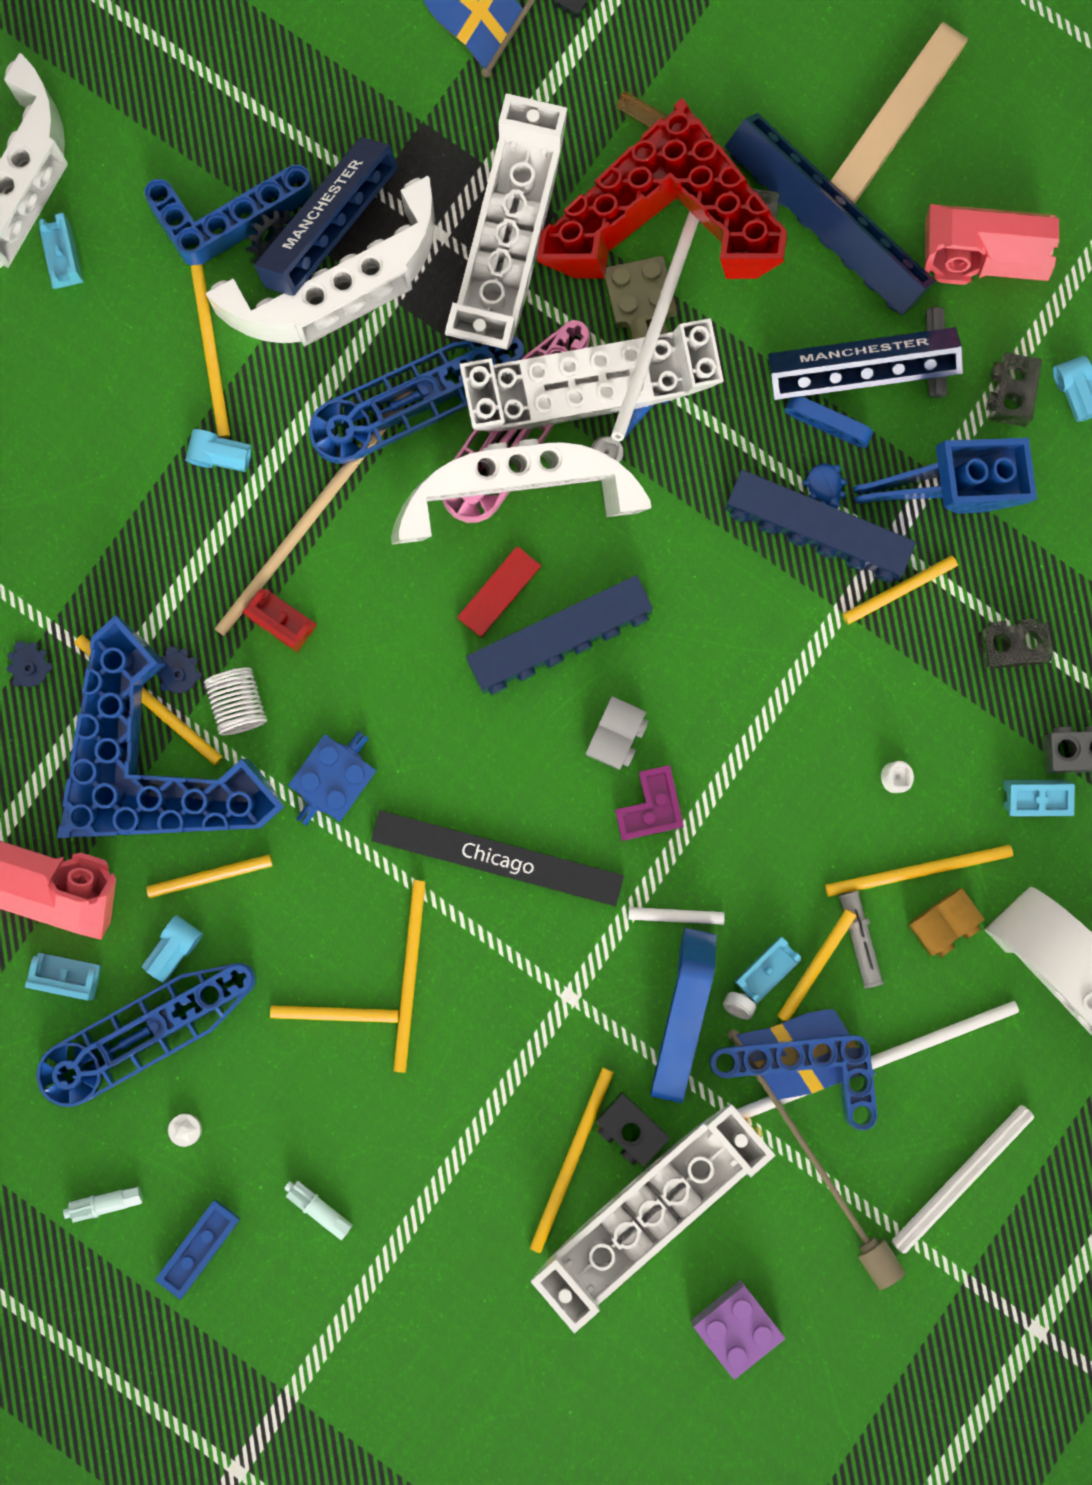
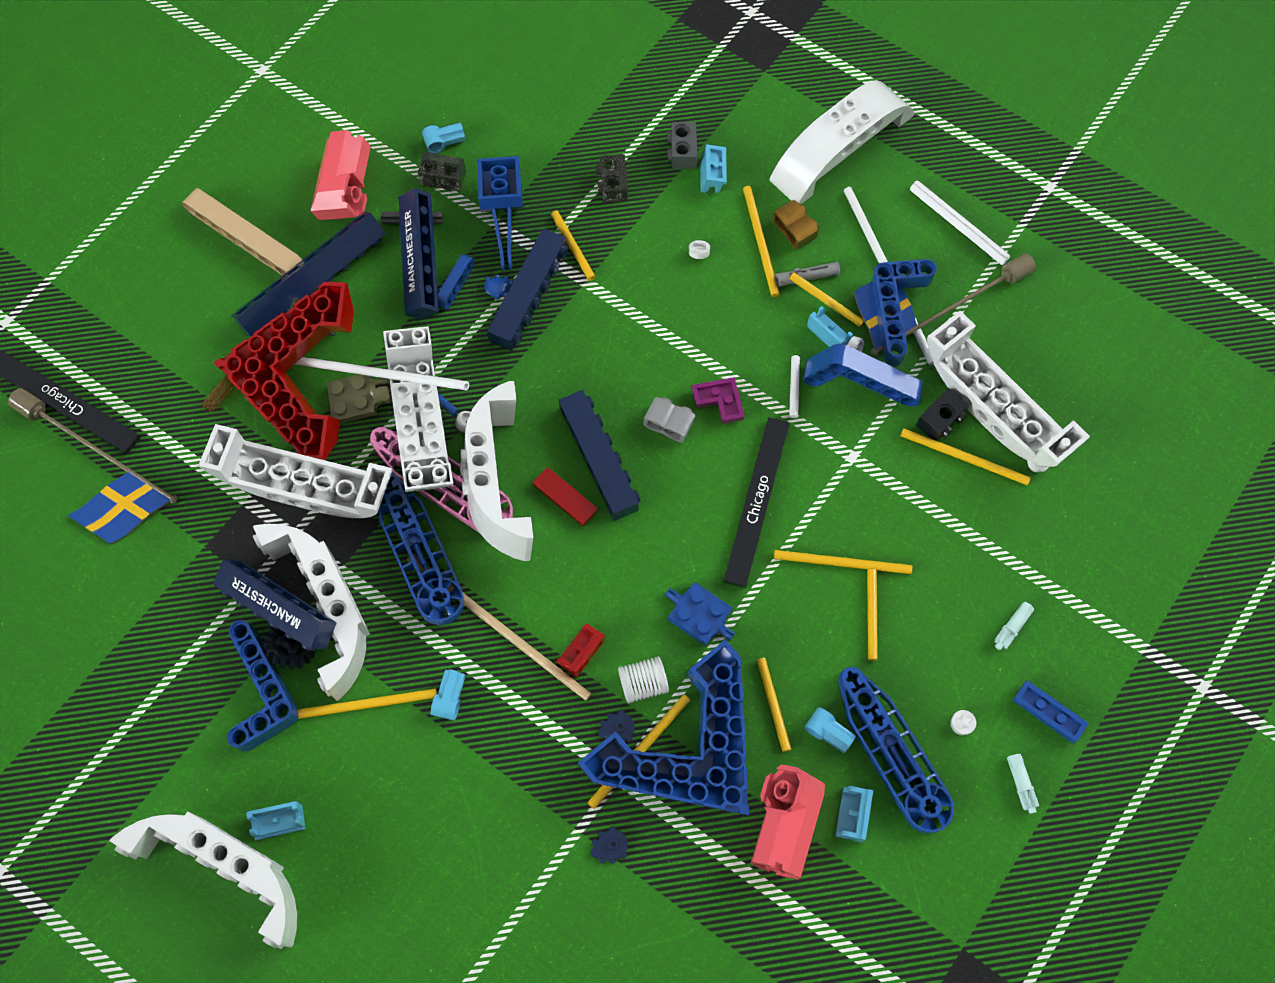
camera: 90 degrees left, 15 degrees down
(737, 1329) = (1070, 352): medium lavender brick -> none

